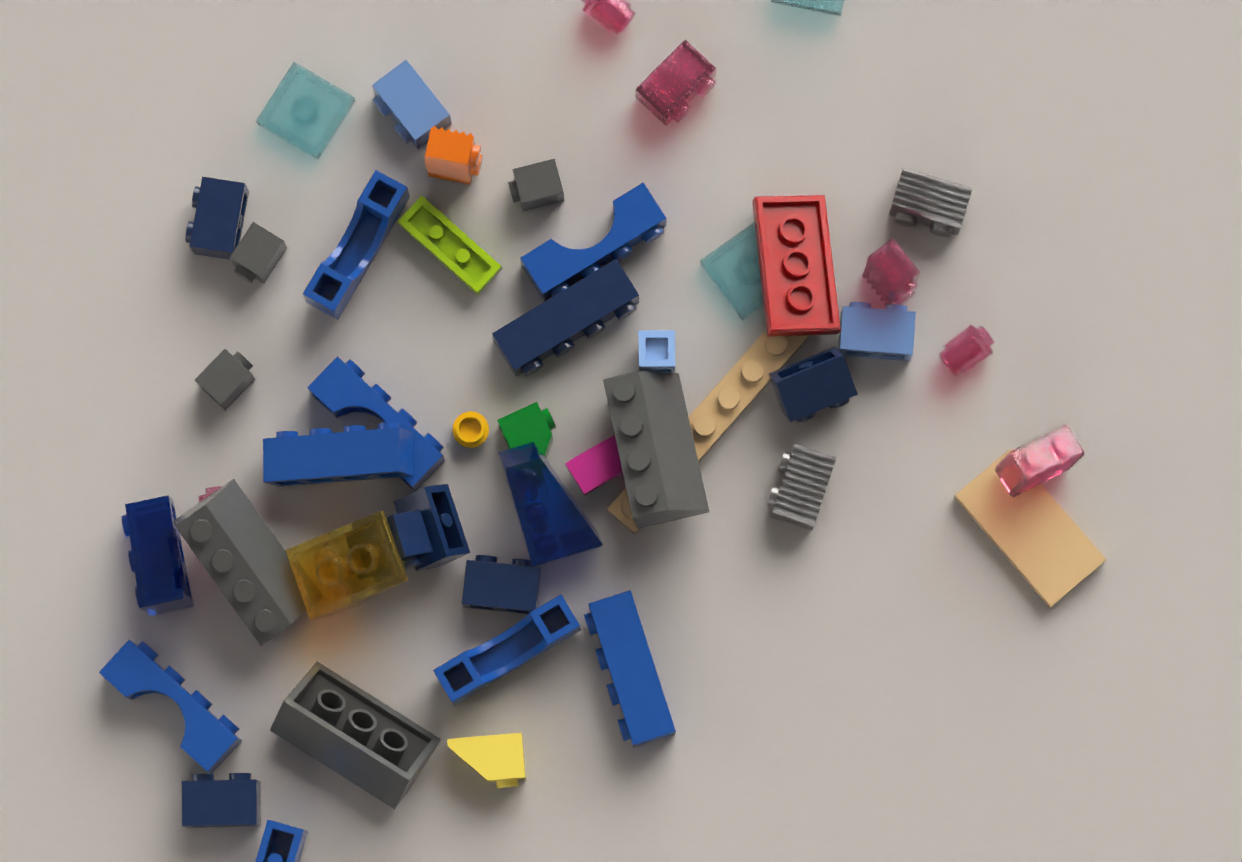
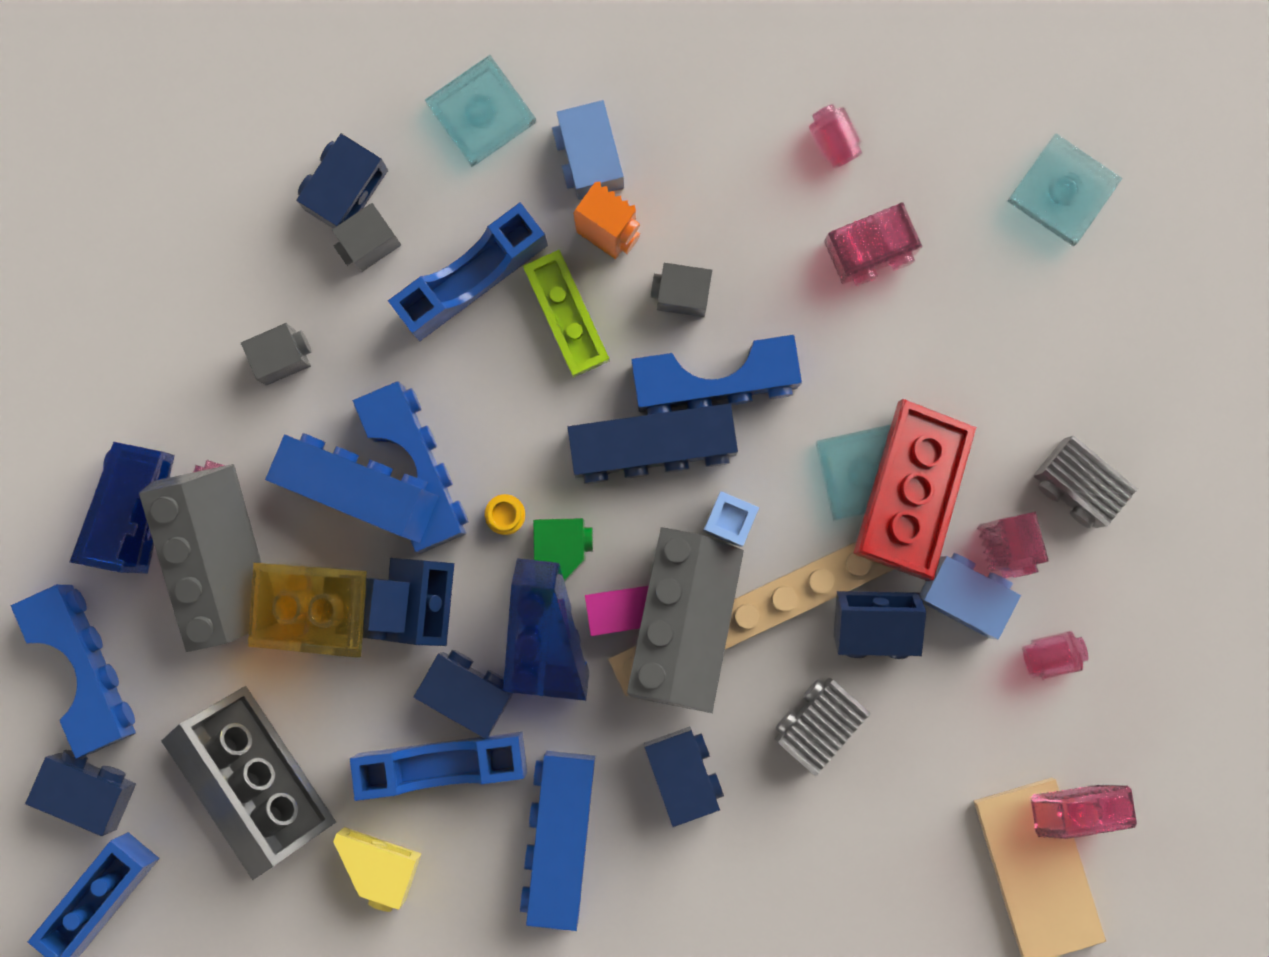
camera: 25 degrees right, 5 degrees up
(708, 574) = (682, 775): none -> dark blue brick

